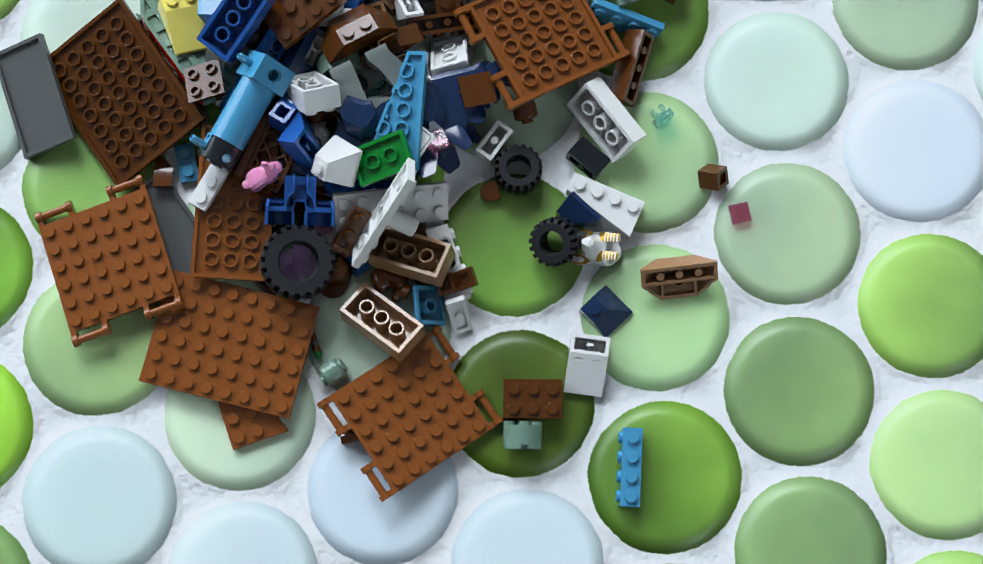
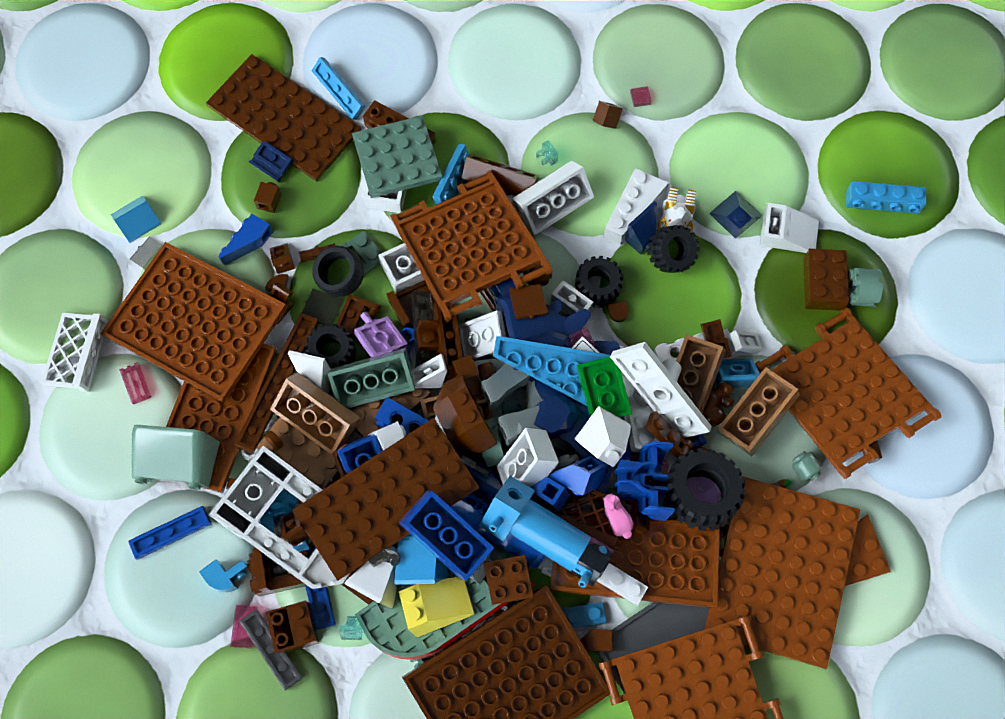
camera: 85 degrees left, 10 degrees down
(587, 158) = (589, 219): black panel -> none
(679, 276) = (702, 144): medium nougat wedge -> none

